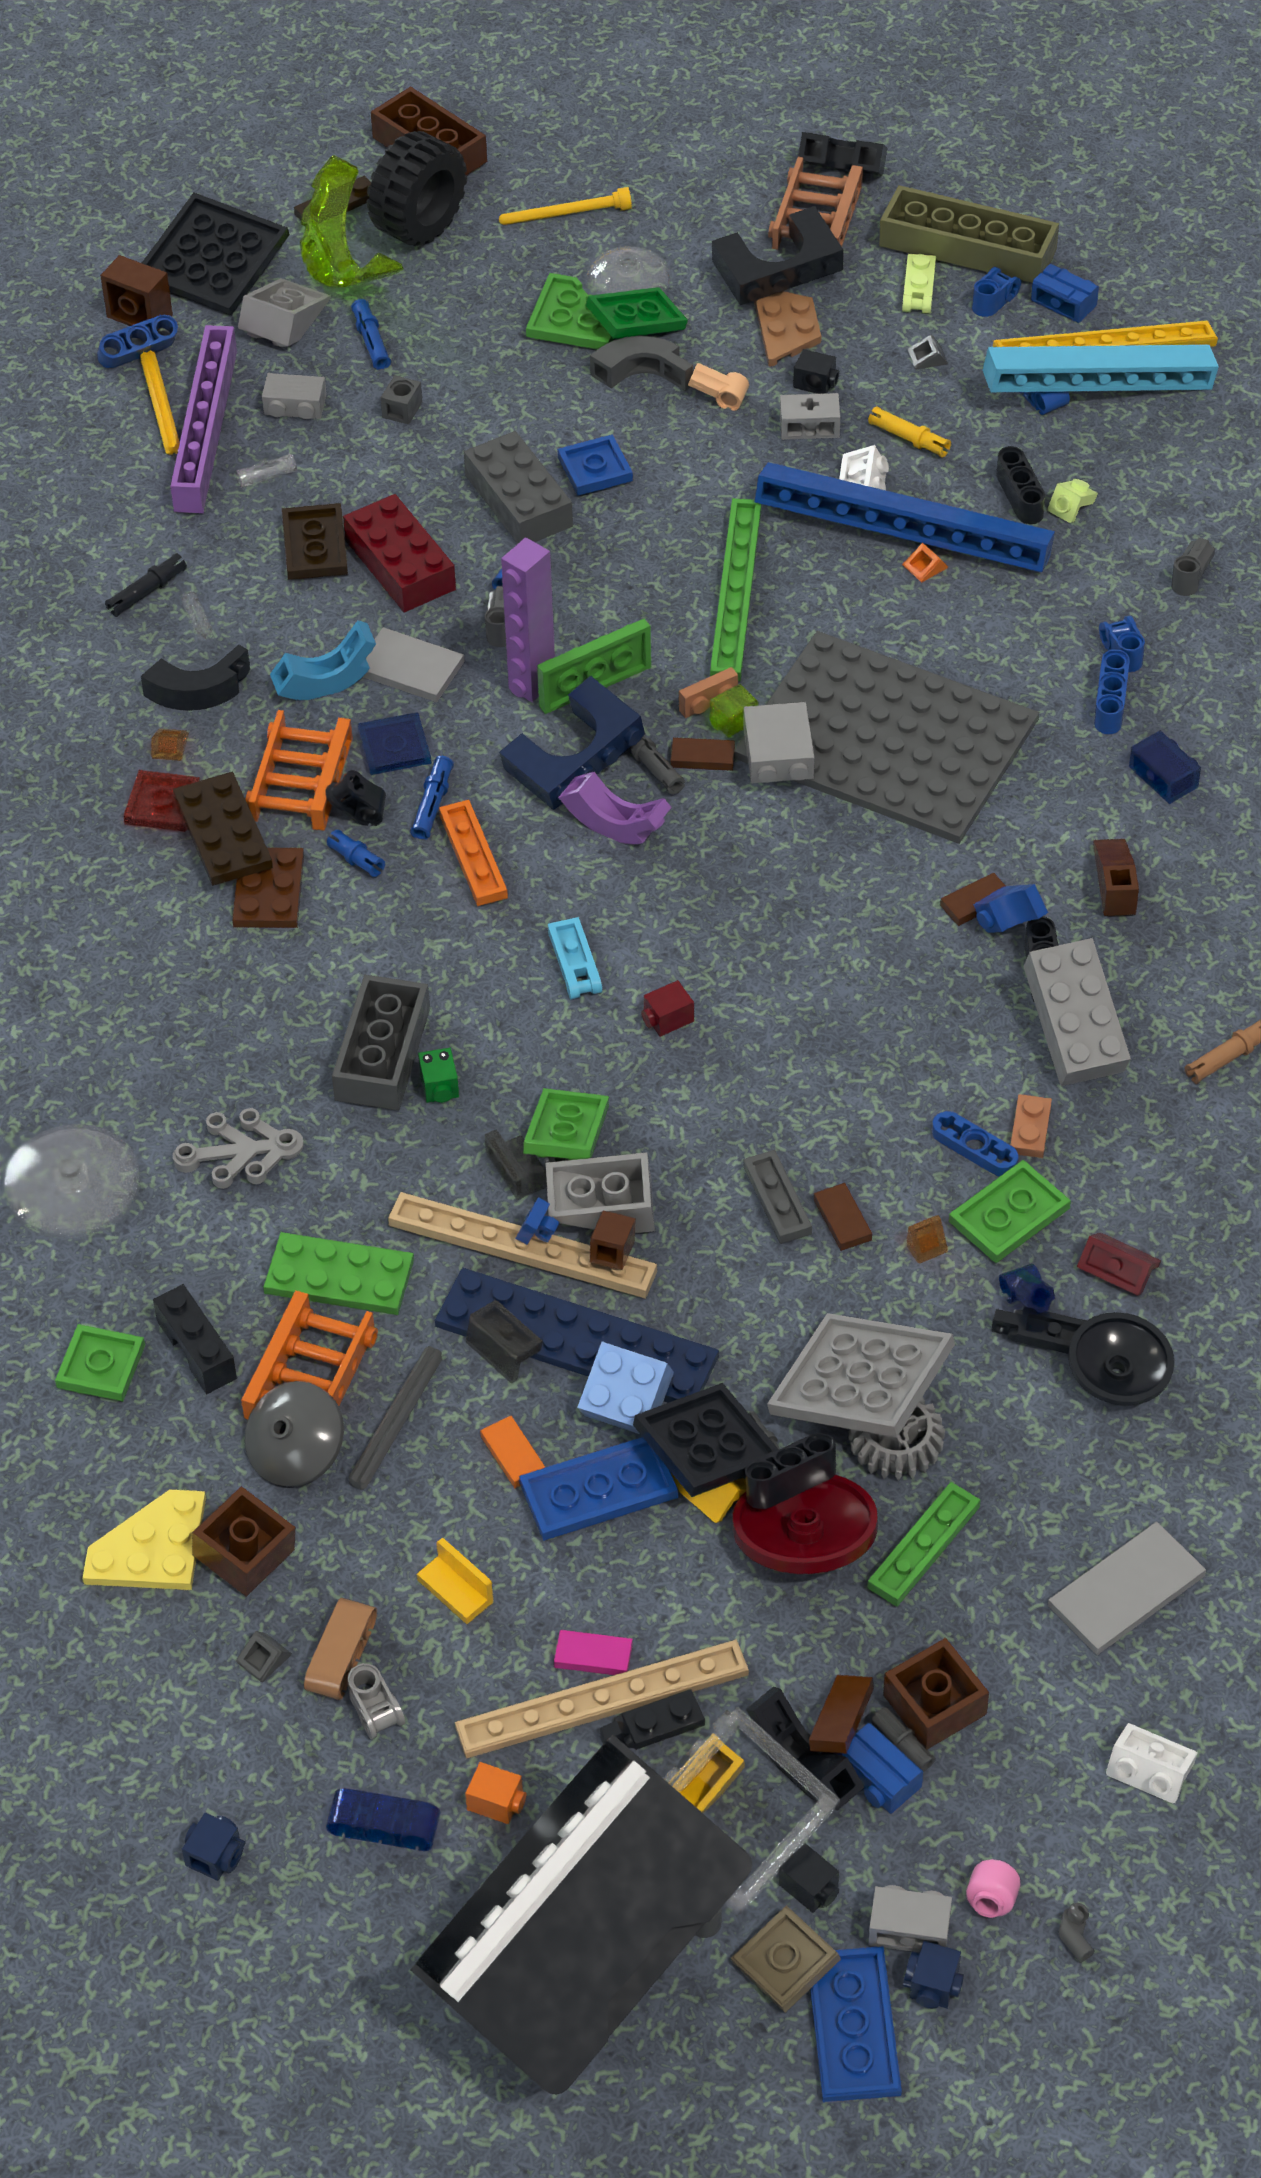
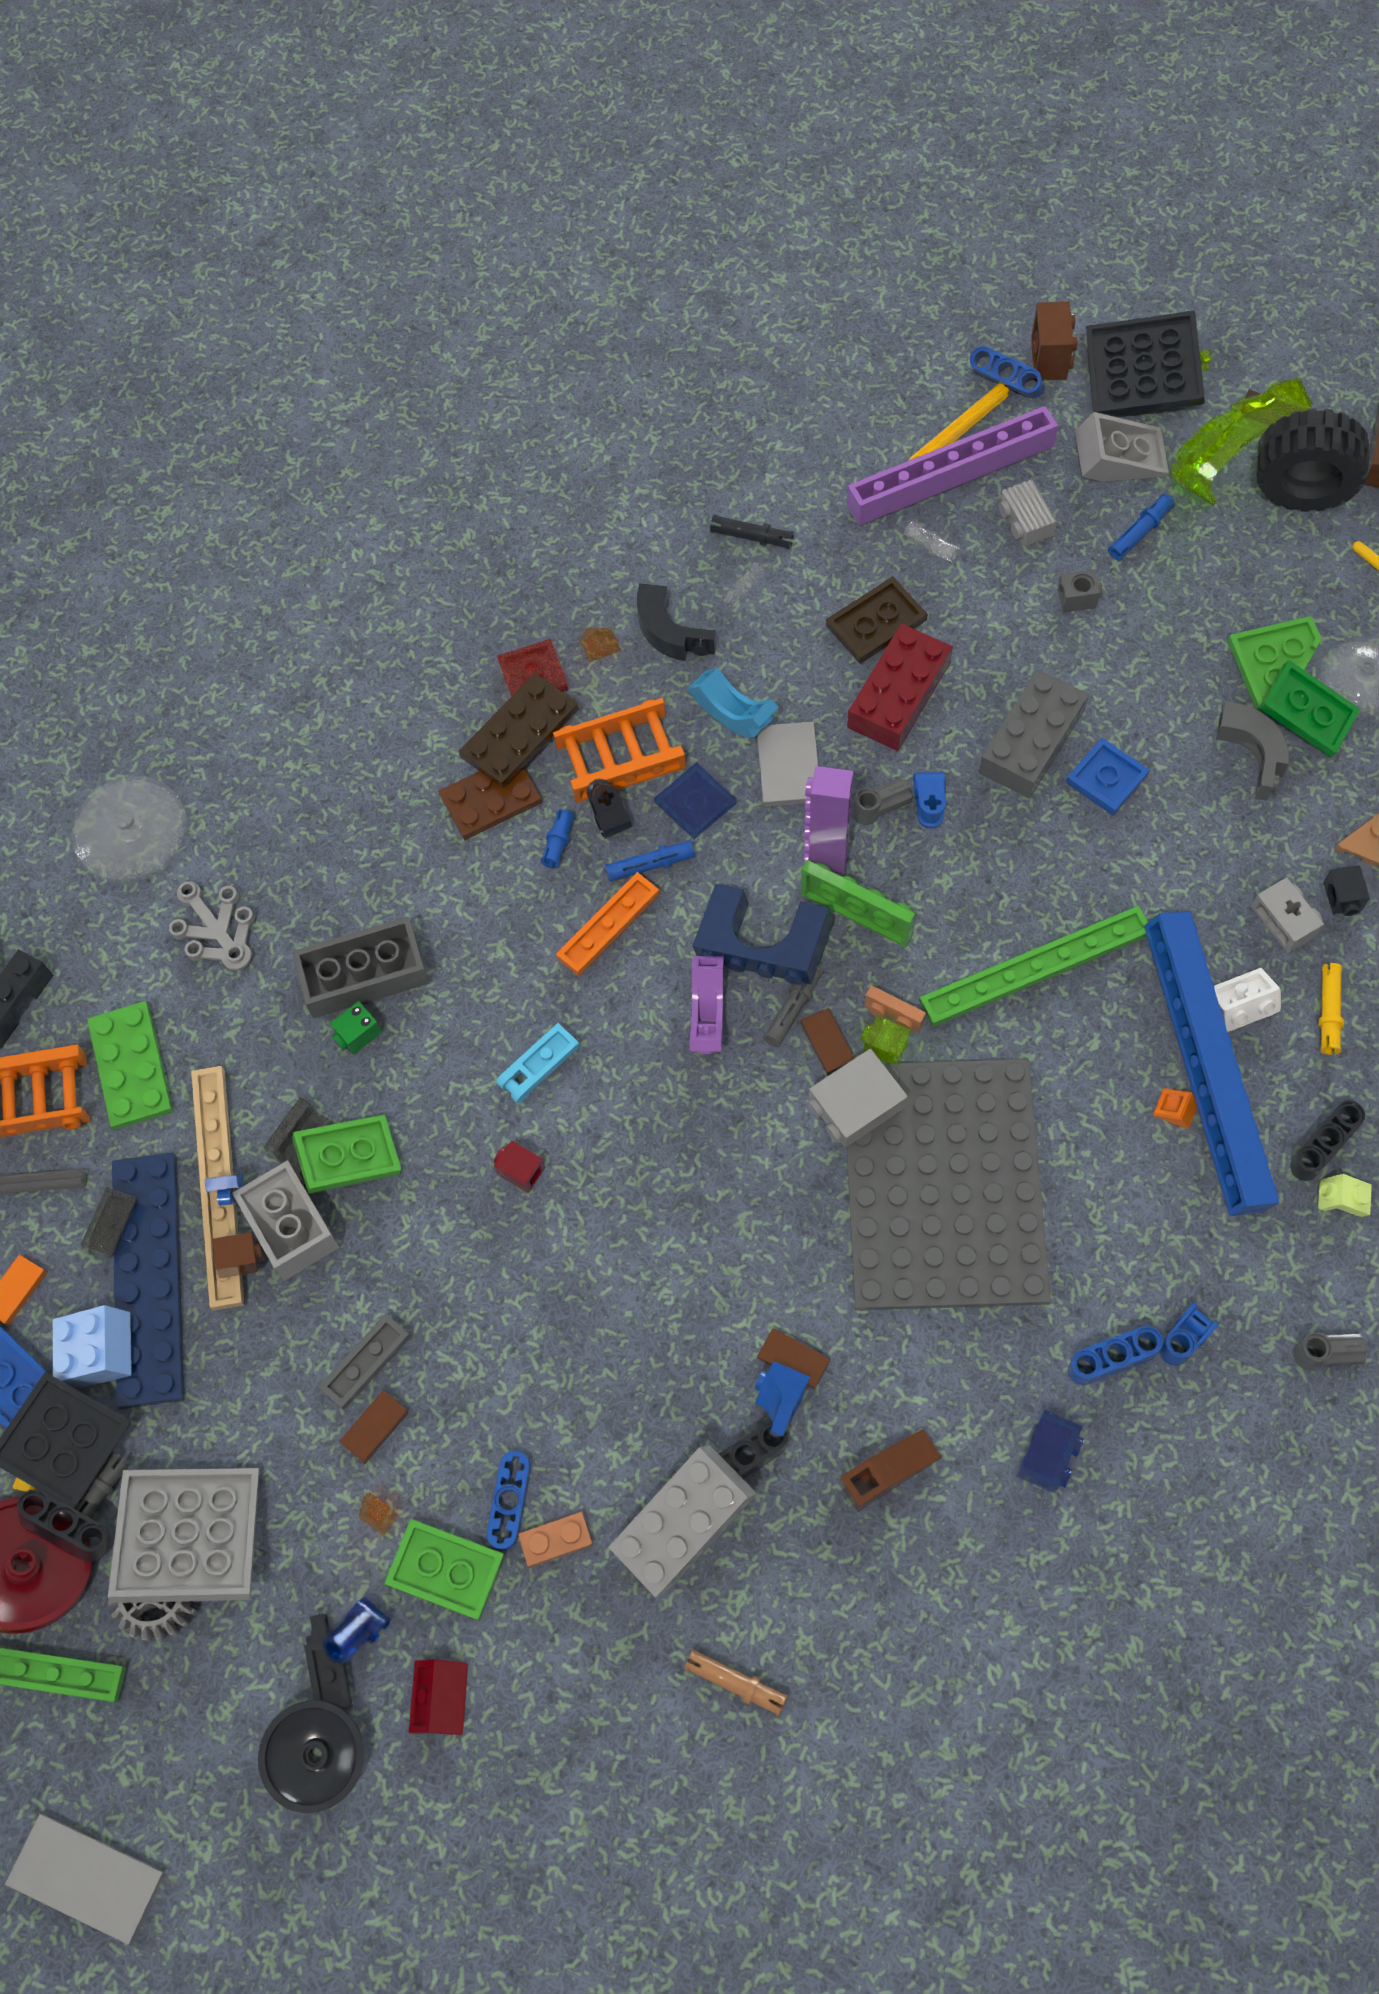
camera: 65 degrees right, 15 degrees up
(727, 389) = (1271, 827): light nougat piece -> none

